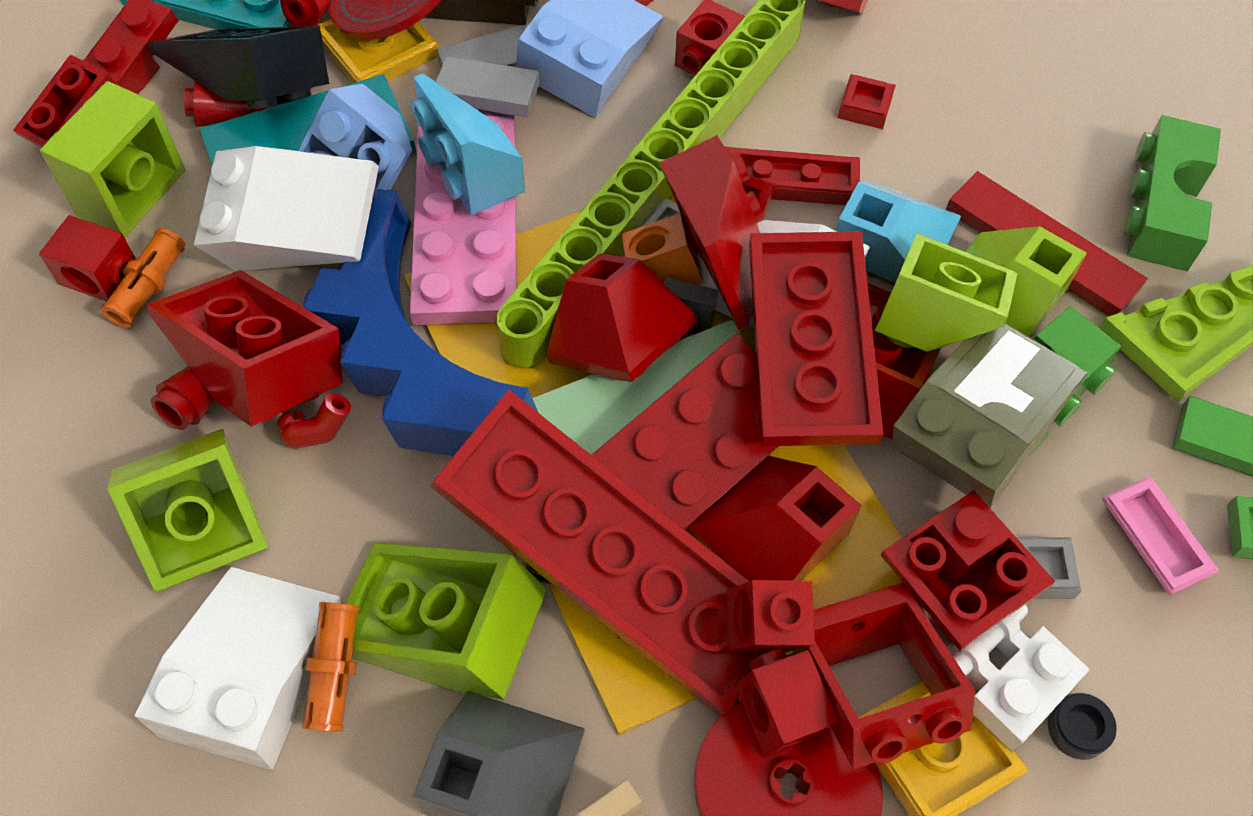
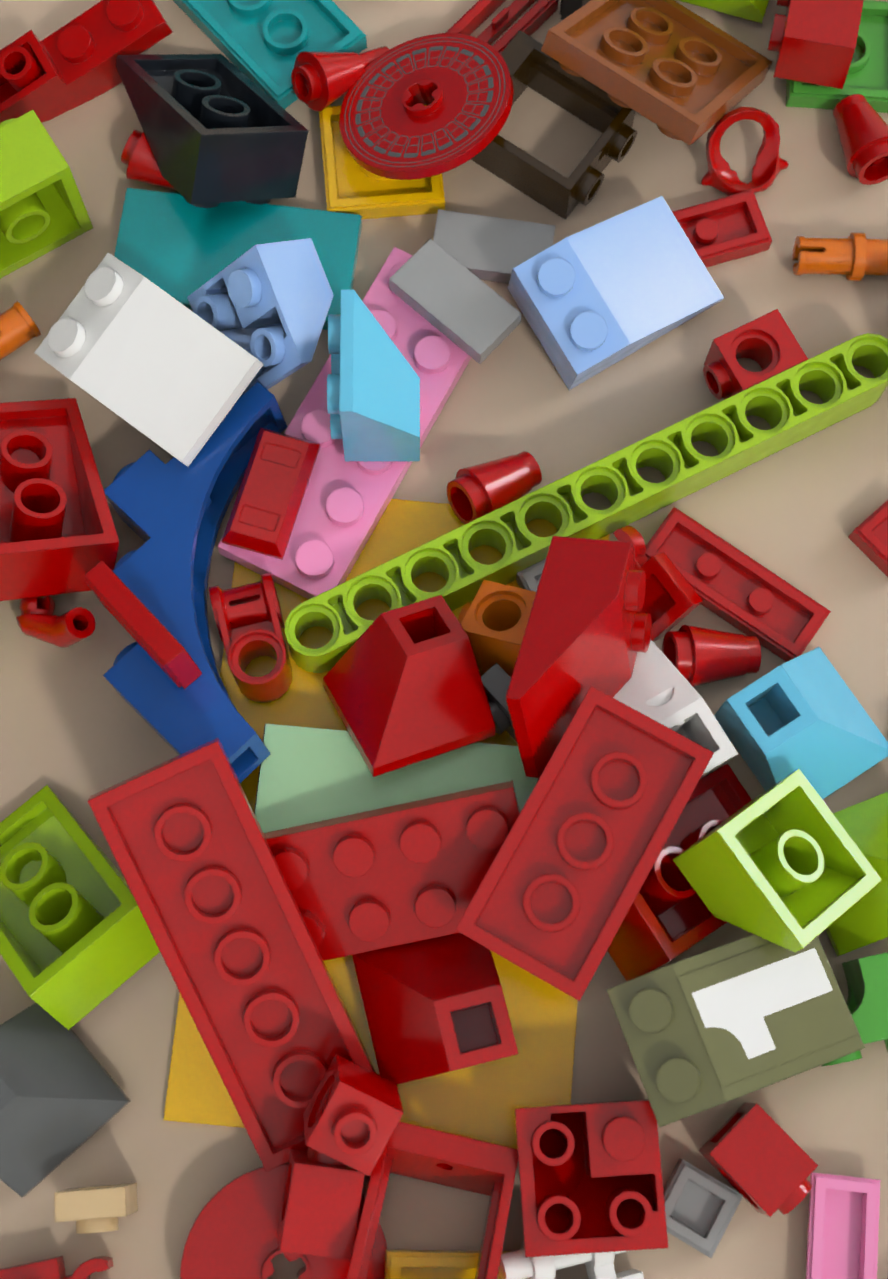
camera: 30 degrees right, 15 degrees up
(396, 358) = (142, 625): none -> red tile
(430, 256) = (271, 493): none -> red tile
(476, 347) = (252, 627): none -> red piece
(581, 185) = (492, 485): none -> red cone
(810, 209) = (711, 654): none -> red cone
(1065, 504) = (760, 1160): none -> red brick

